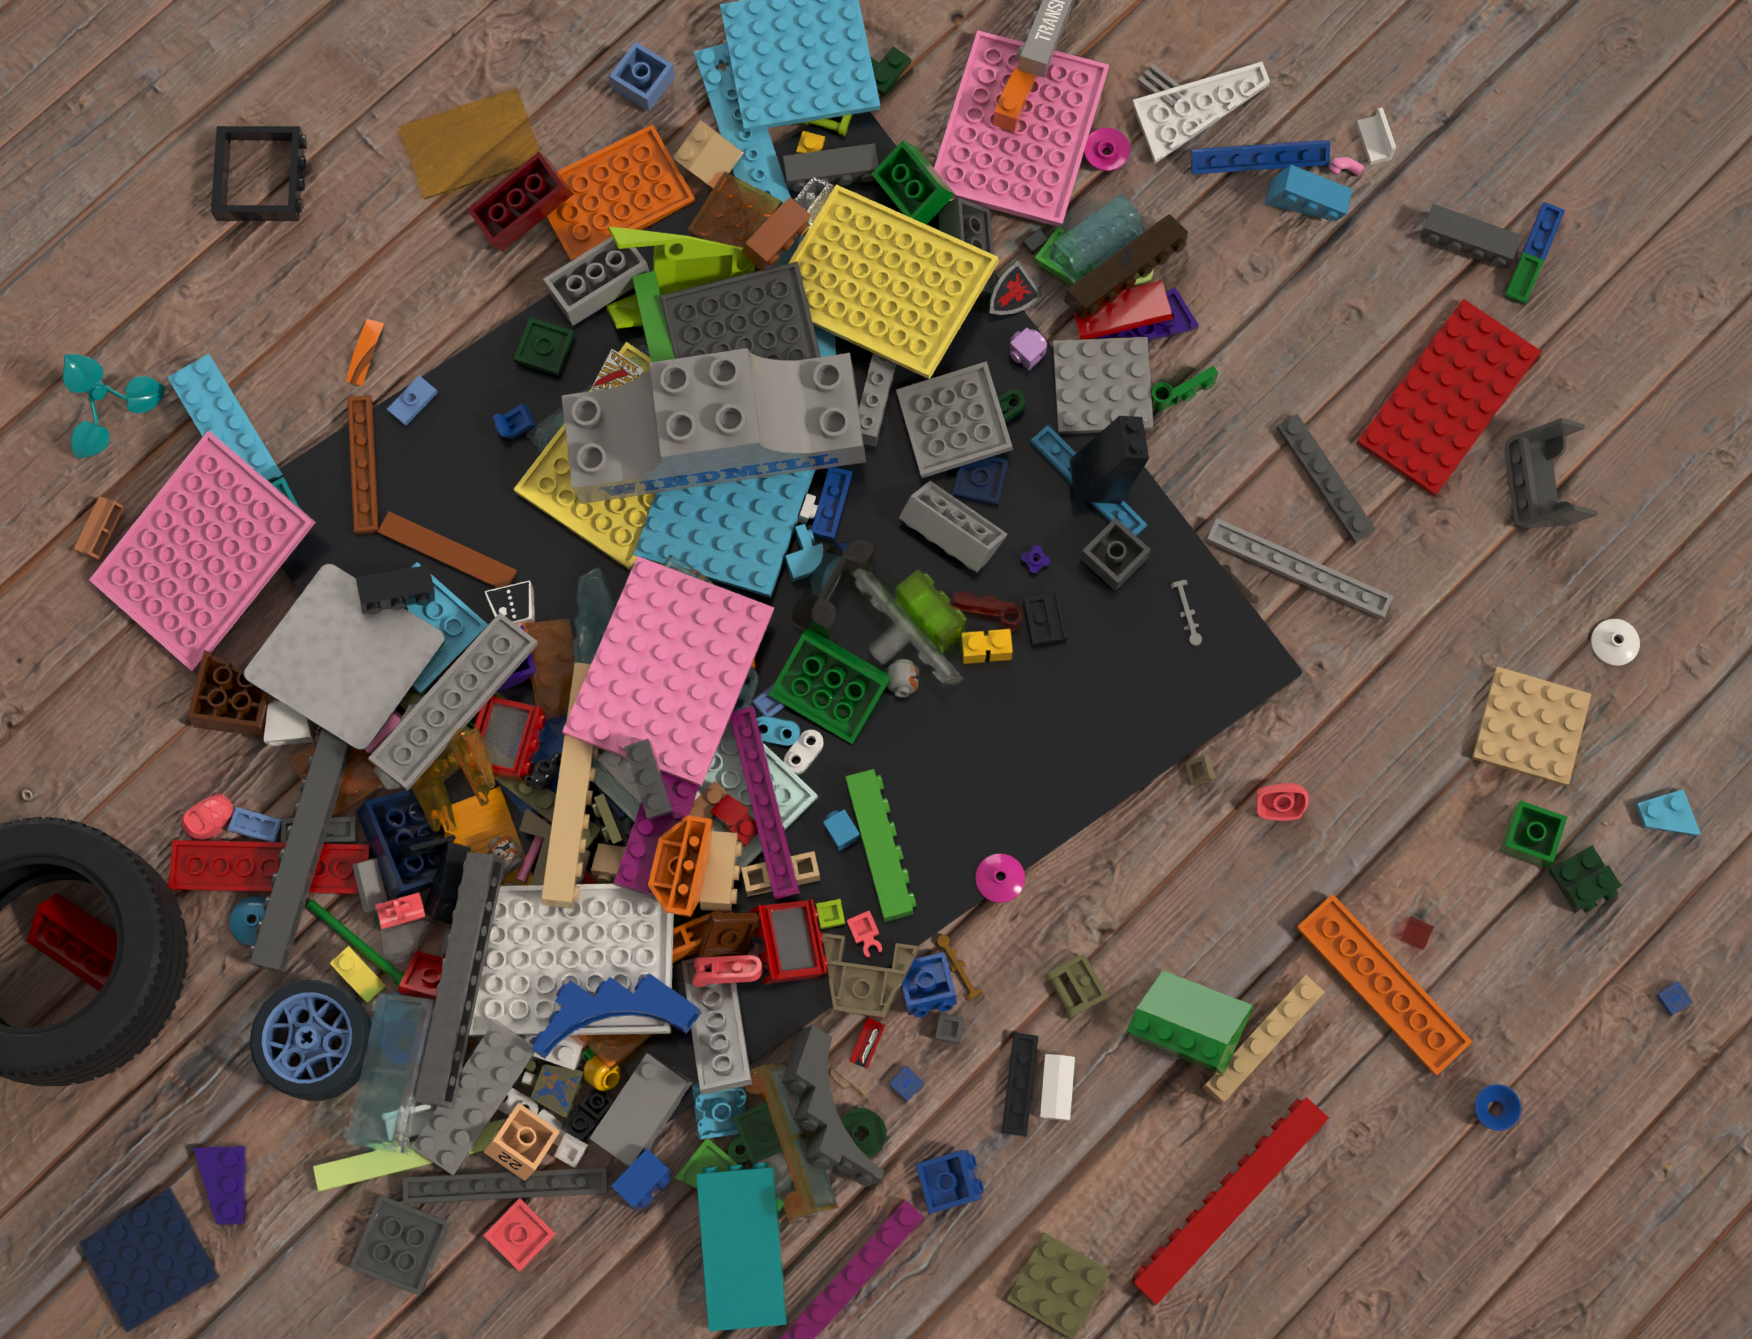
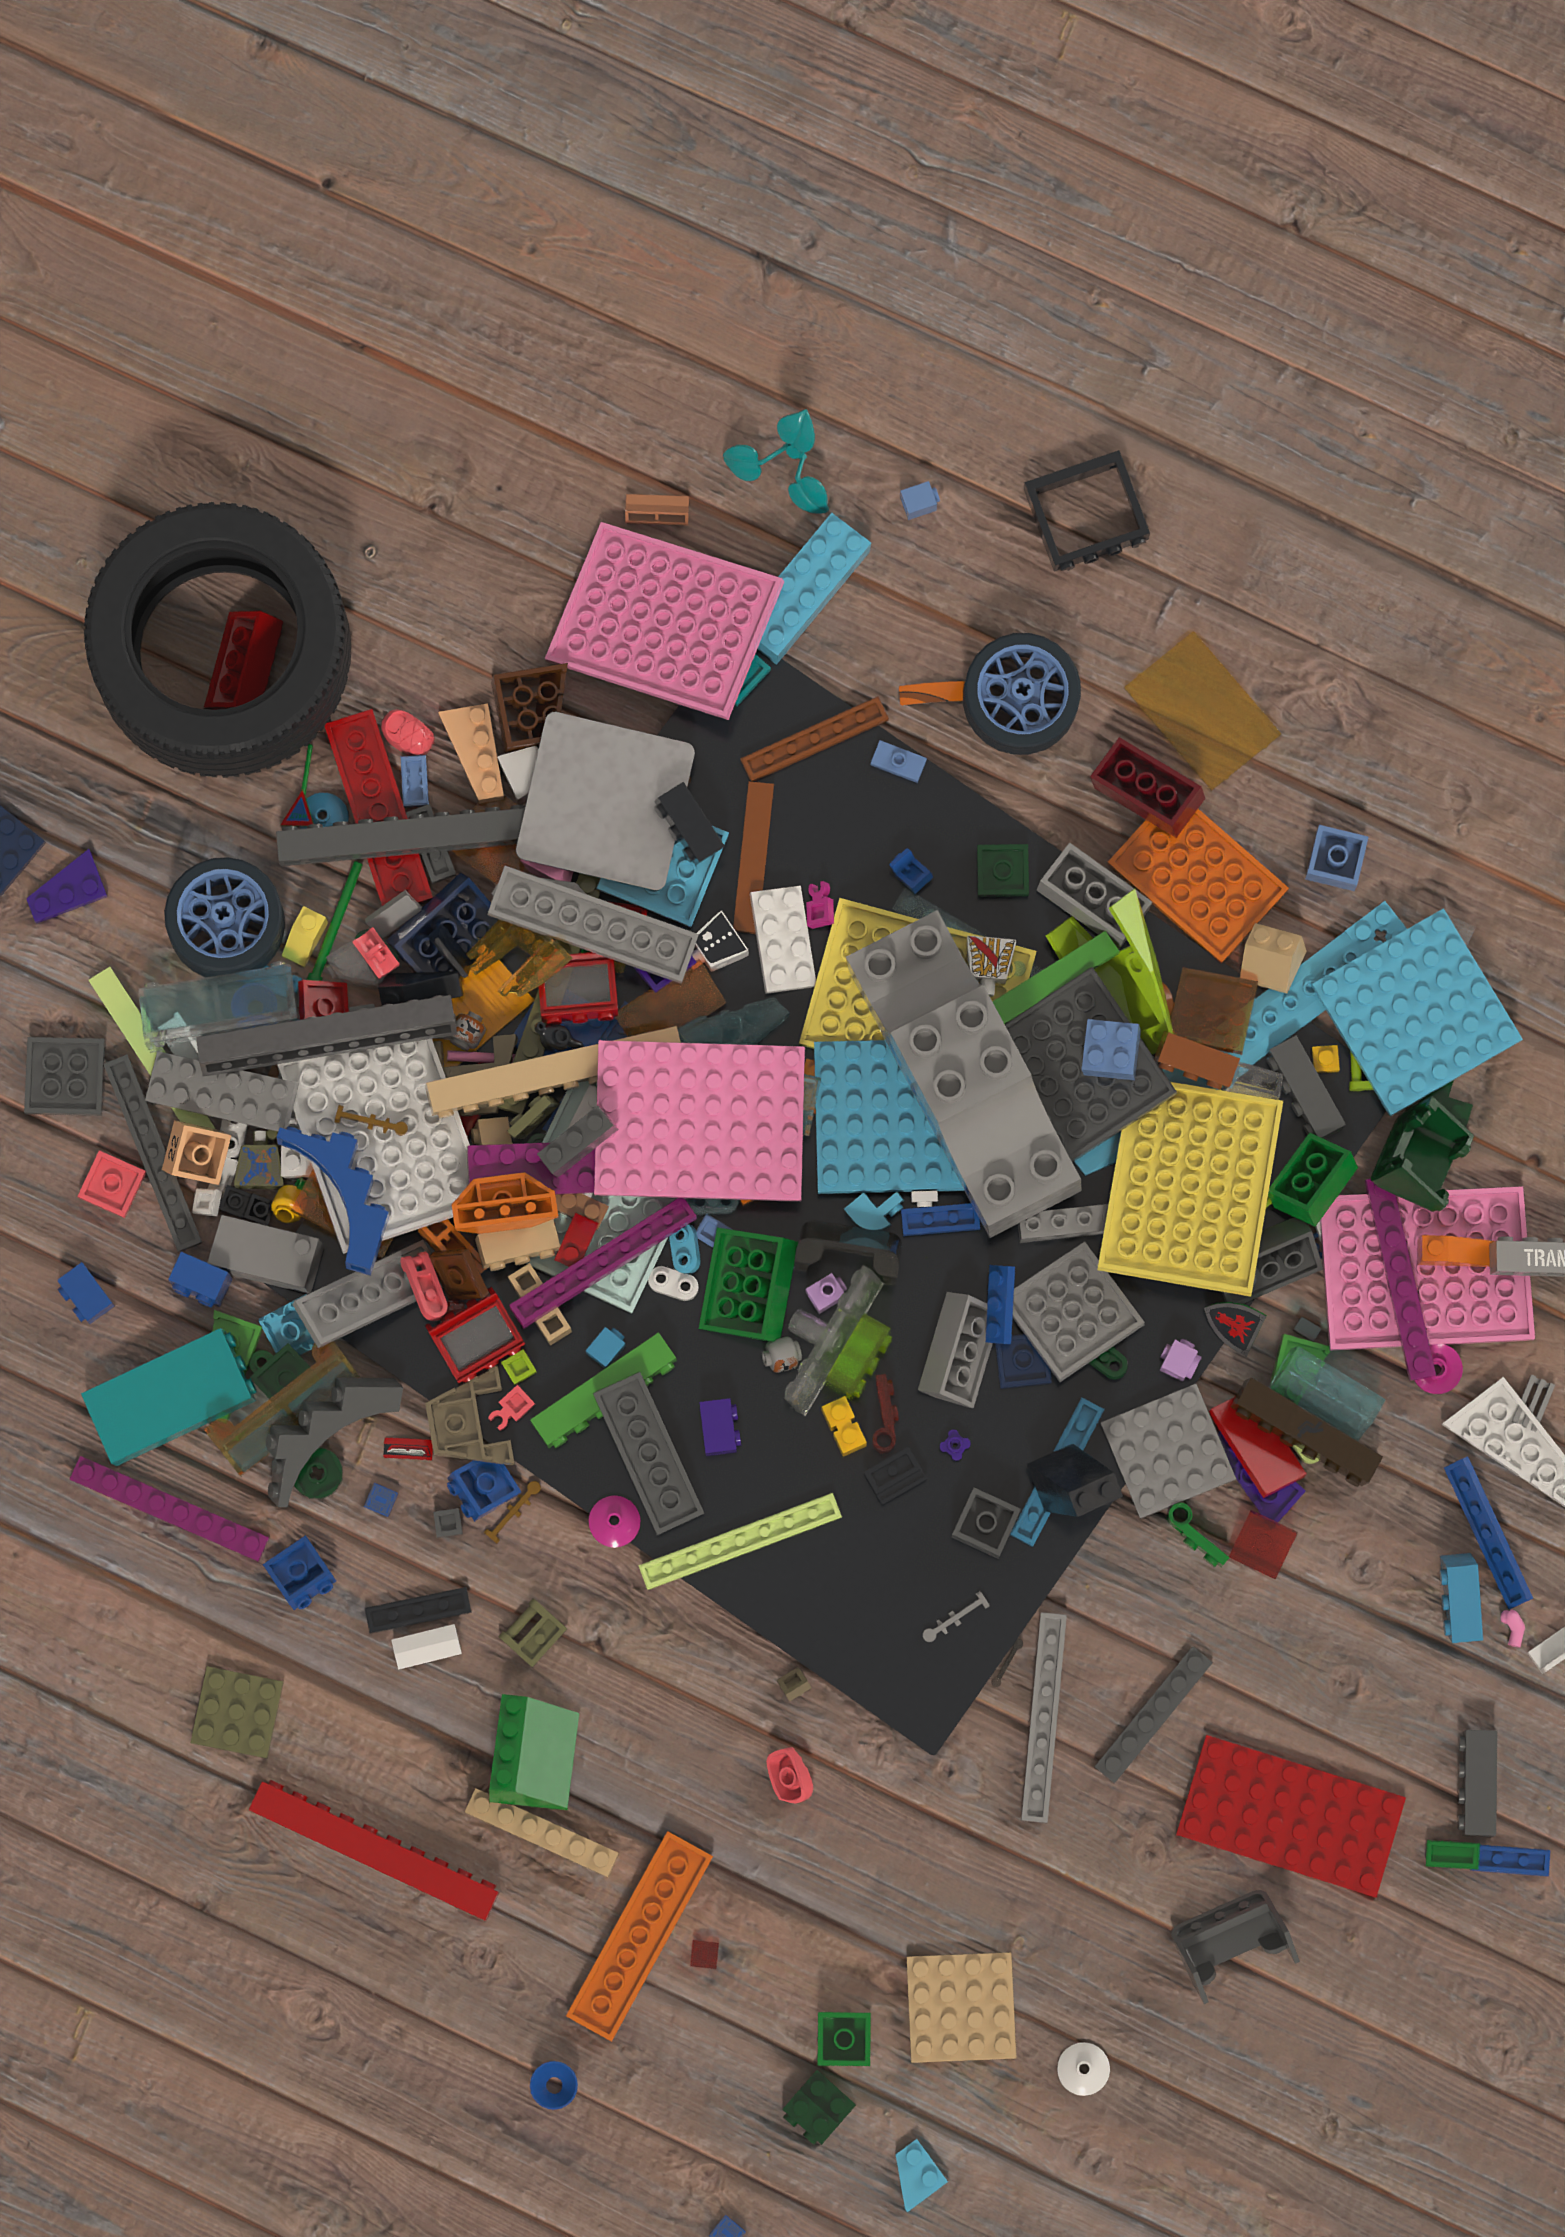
camera: 70 degrees right, 5 degrees up
(188, 305) = (919, 500): none -> medium blue brick
(239, 939) = (299, 812): none -> piece
(243, 759) = (475, 746): none -> light nougat wing
(395, 276) = (1043, 656): none -> wheel
(516, 509) = (820, 909): none -> dark pink plate
(531, 550) = (783, 939): none -> white plate
(573, 941) = (400, 1127): none -> pearl gold piece
(614, 1295) = (85, 1293): none -> blue brick
(740, 299) = (1111, 1049): none -> medium blue brick
(862, 620) = (826, 1292): none -> lavender brick
(918, 98) = (1421, 1153): none -> dark green windscreen
(927, 475) = (1000, 1304): none -> blue plate
(948, 754) = (718, 1427): none -> dark purple brick
(951, 823) = (648, 1453): none -> dark grey plate
(1021, 147) = (1401, 1282): none -> magenta plate
(1056, 774) = (740, 1541): none -> yellowish green tile
(1209, 337) = (1263, 1544): none -> clear red tile

